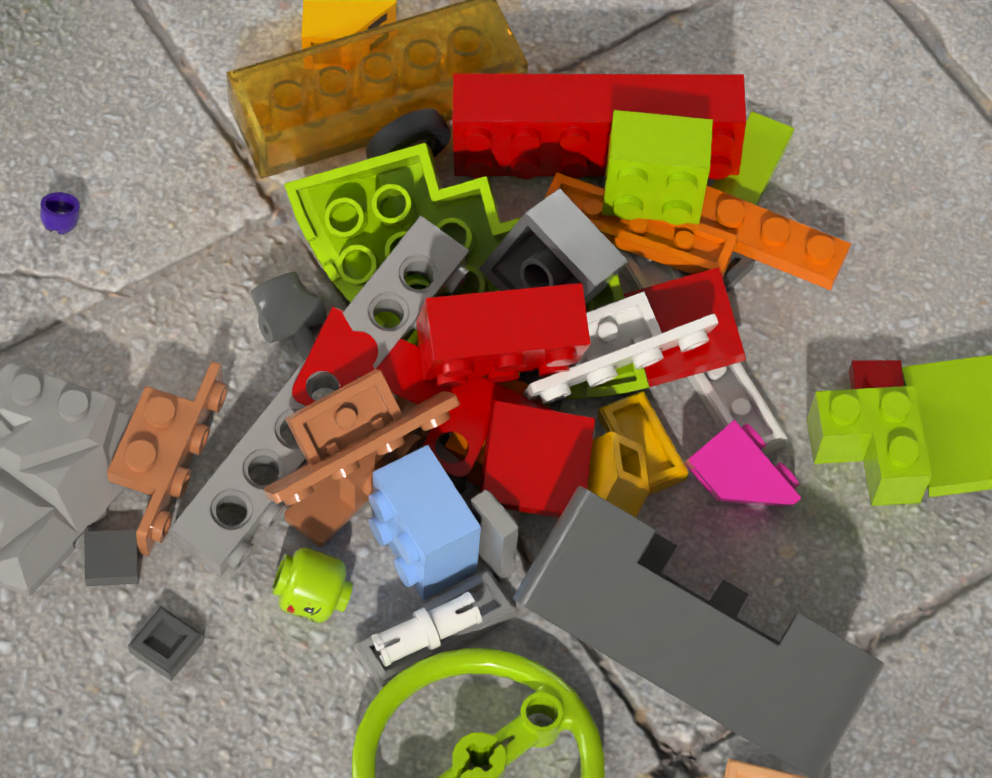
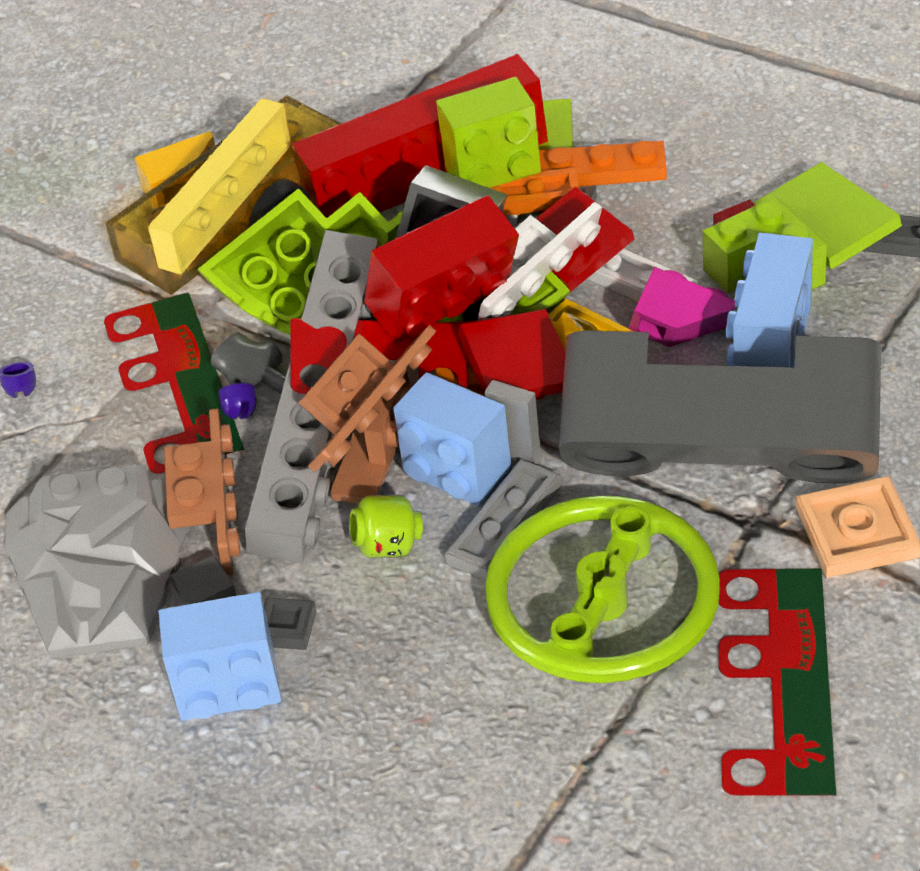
camera: 15 degrees left, 15 degrees down
(72, 665) = (219, 656): none -> light blue brick
(229, 272) = (183, 362): none -> piece
(254, 353) = (238, 400): none -> dark purple hinge
(354, 94) = (219, 186): none -> light yellow piece
(427, 628) = (499, 510): white pin -> none
(825, 531) = (771, 302): none -> light blue brick

